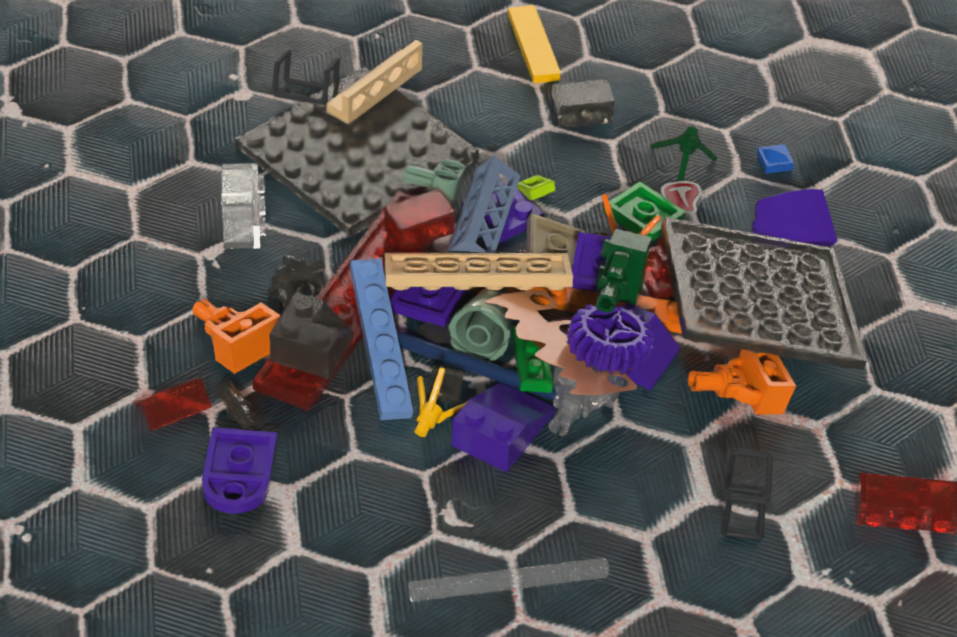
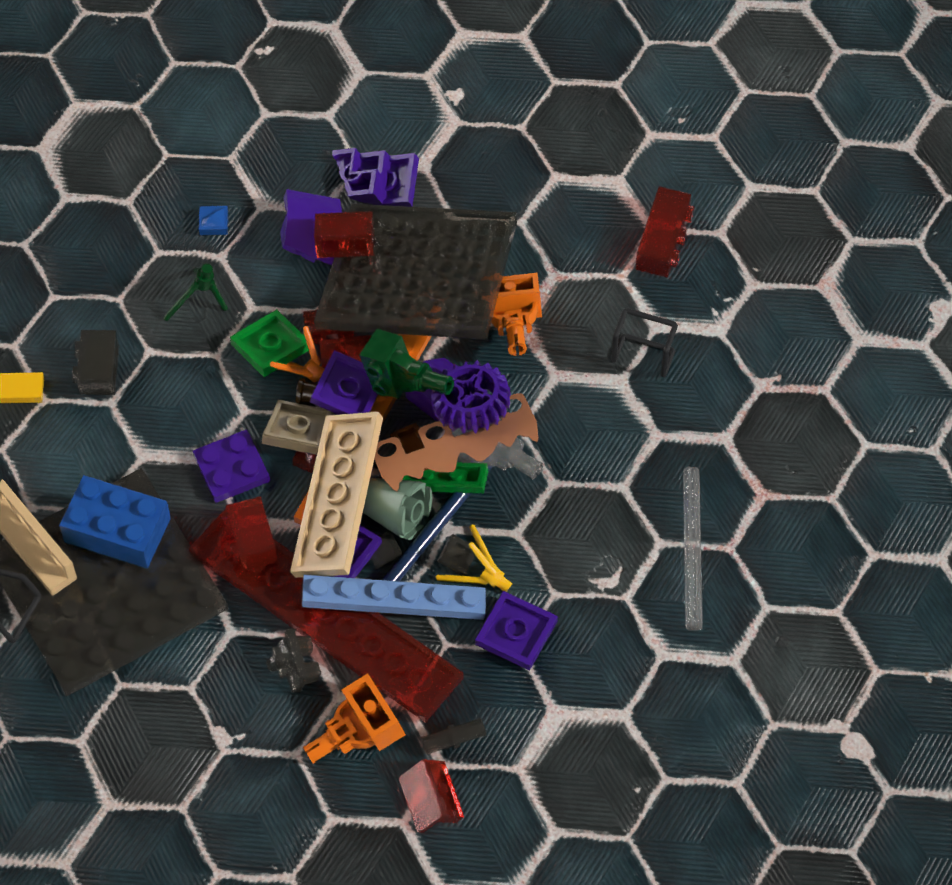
camera: 75 degrees left, 15 degrees up
(238, 464) = (527, 745): dark purple plate -> none
(242, 206) = (189, 692): clear brick -> none
(309, 337) = (393, 653): clear smoke slope -> none
(369, 441) = (516, 630): none -> dark purple plate
(405, 127) = (115, 521): none -> blue brick
(446, 178) = (192, 504): sand green beam -> none
(480, 203) = (246, 479): sand blue fence -> none
(499, 425) = (514, 517): dark purple slope -> none
(536, 187) = (208, 428): lime tile -> none
(685, 195) = (248, 307): piece -> none
(778, 228) = (344, 234): none -> clear red brick
(877, 266) = (377, 176): none -> dark purple slope

